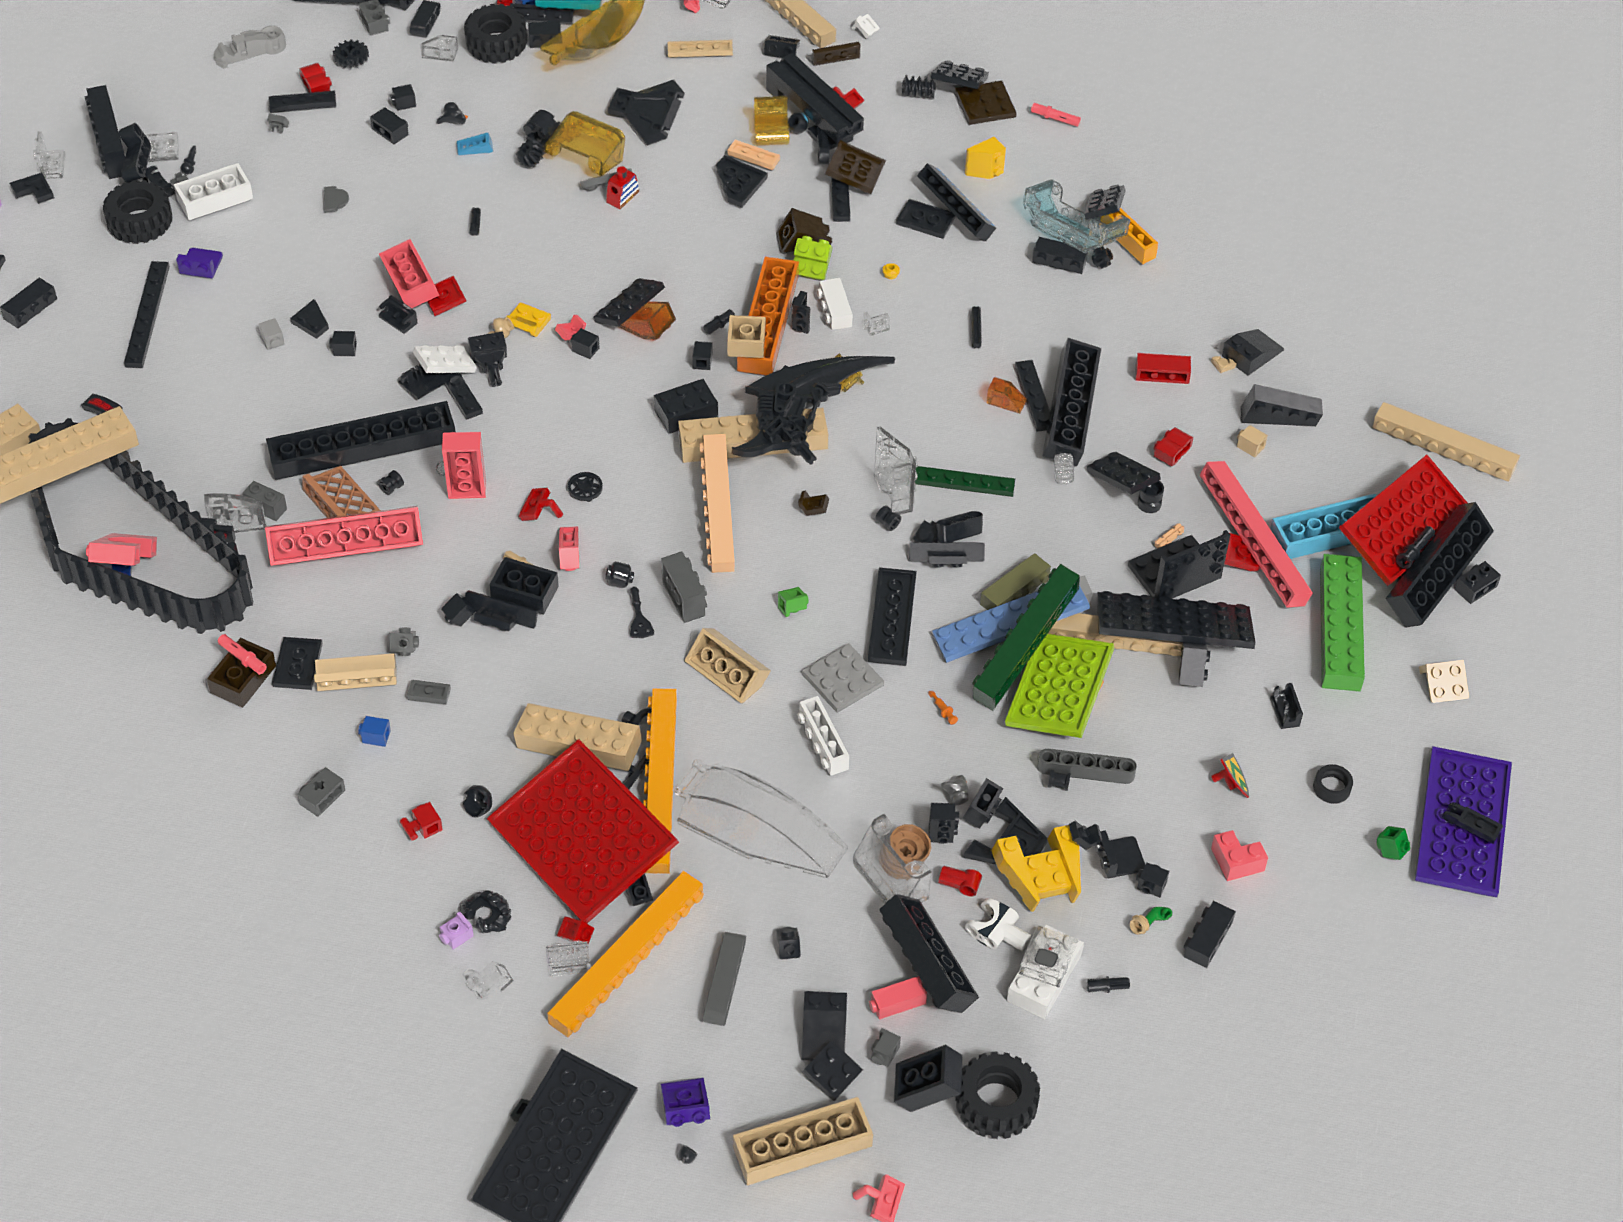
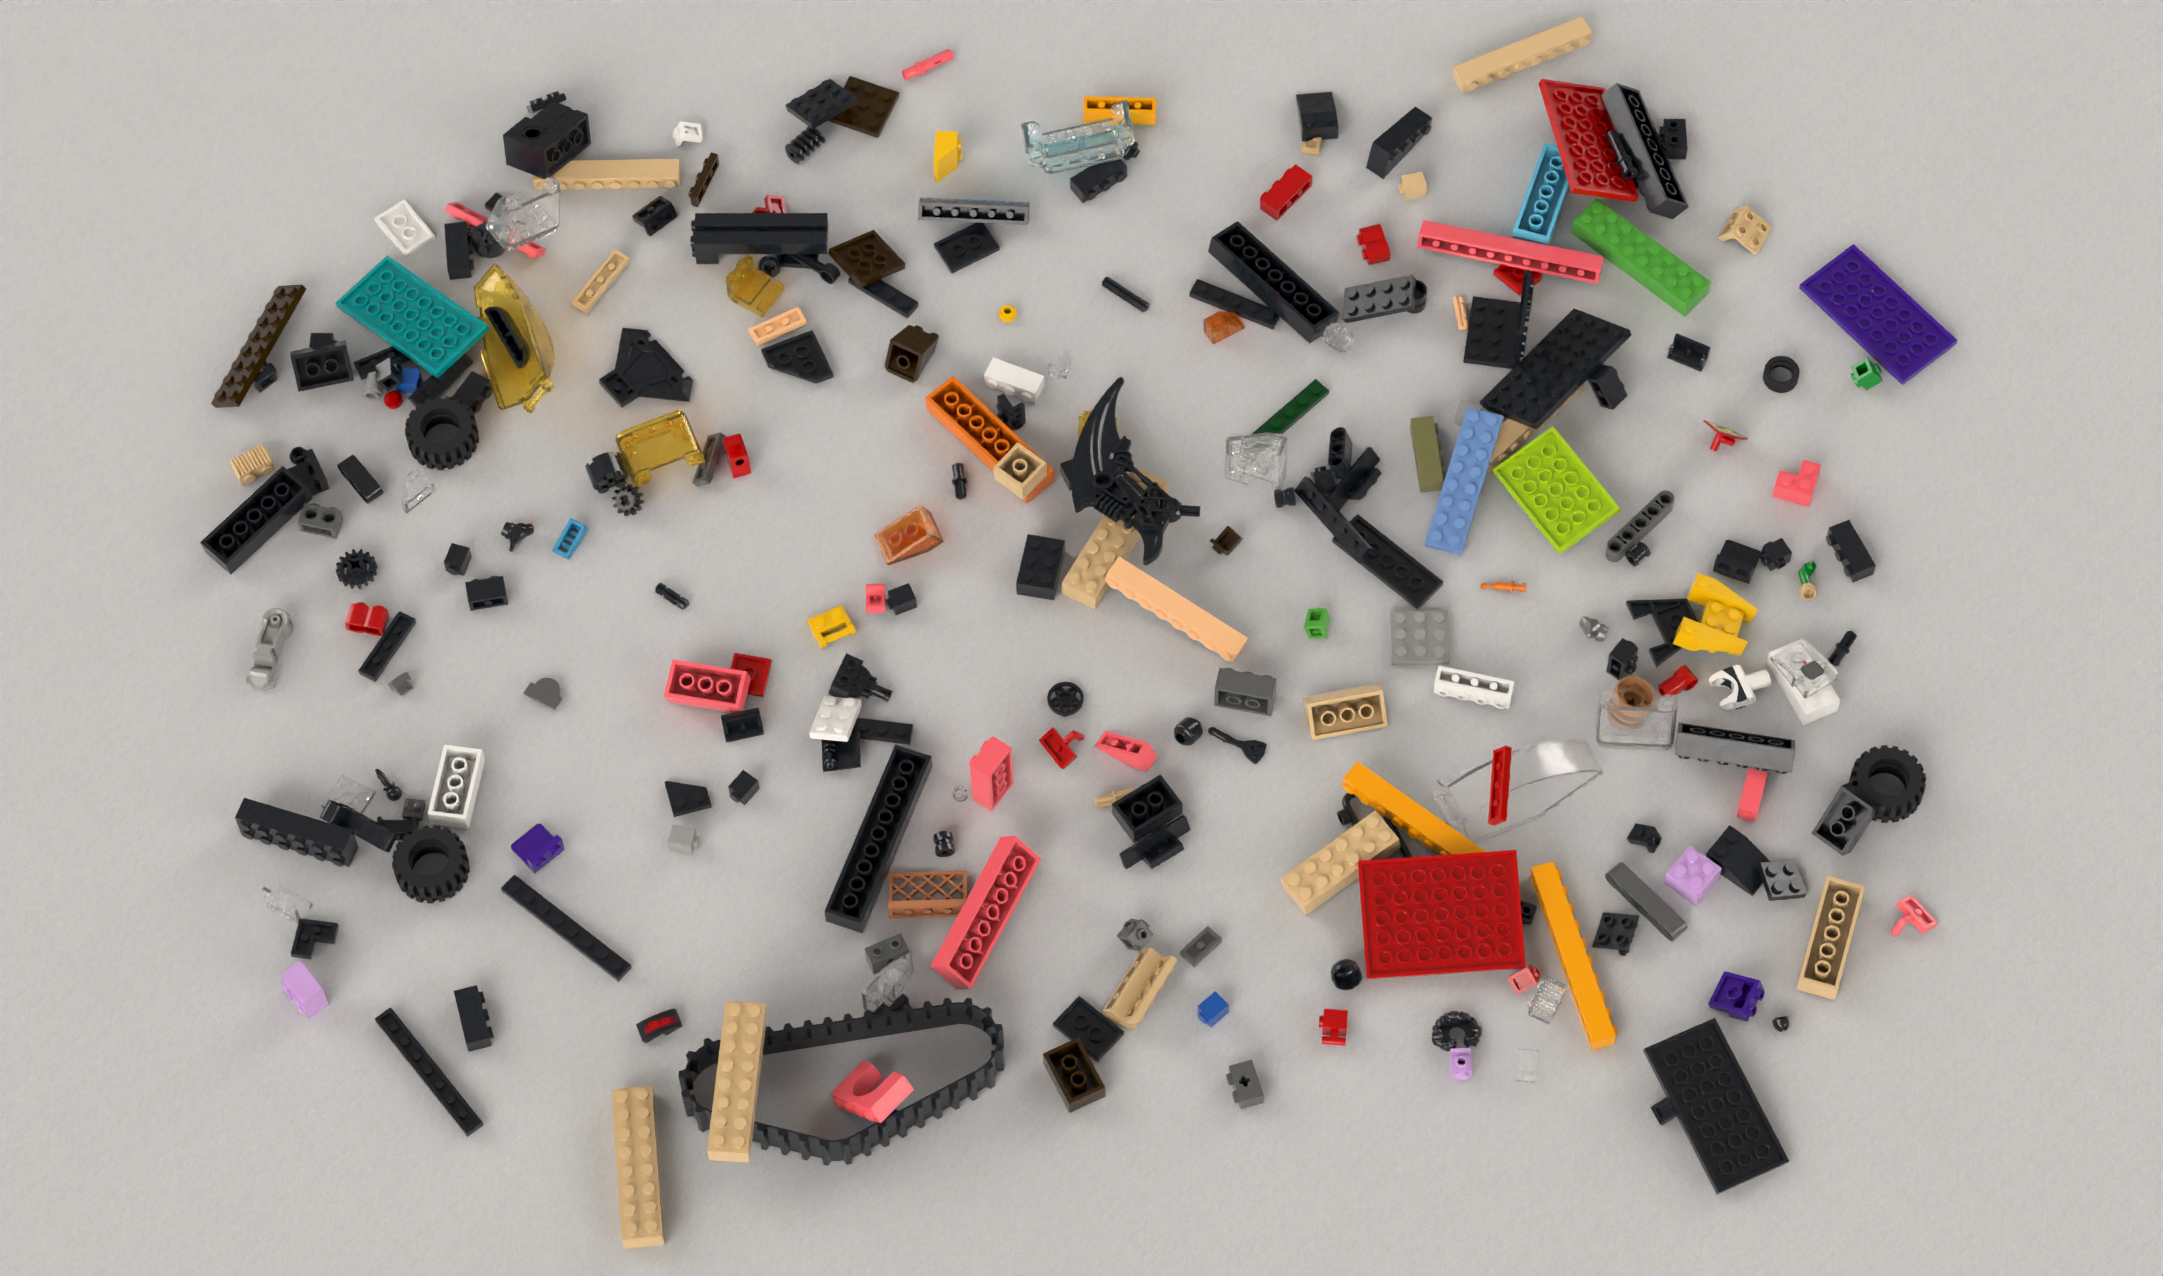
camera: 50 degrees left, 10 degrees up
(247, 658) = (1067, 1061): coral pin -> none
(458, 610) = (1133, 873): black brick -> none
(504, 325) = (829, 651): tan animal -> none
(629, 302) = (881, 535): black plate -> none
(675, 973) = (1616, 932): none -> black hinge
(702, 355) = (990, 518): black brick -> none
(720, 796) = (1499, 785): none -> red plate
(778, 998) = (1693, 875): none -> lavender brick
(812, 257) = (950, 362): lime plate -> none
(885, 1047) = (1788, 832): dark grey brick -> none
(892, 556) = (1333, 519): none -> black plate
(982, 804) = (1623, 619): black brick -> none
(1025, 637) = (1503, 481): dark green brick -> none
(1085, 836) = (1715, 569): black bracket -> none
(1105, 201) = (1077, 103): black plate -> none
(1473, 822) = (1890, 309): black hinge -> none

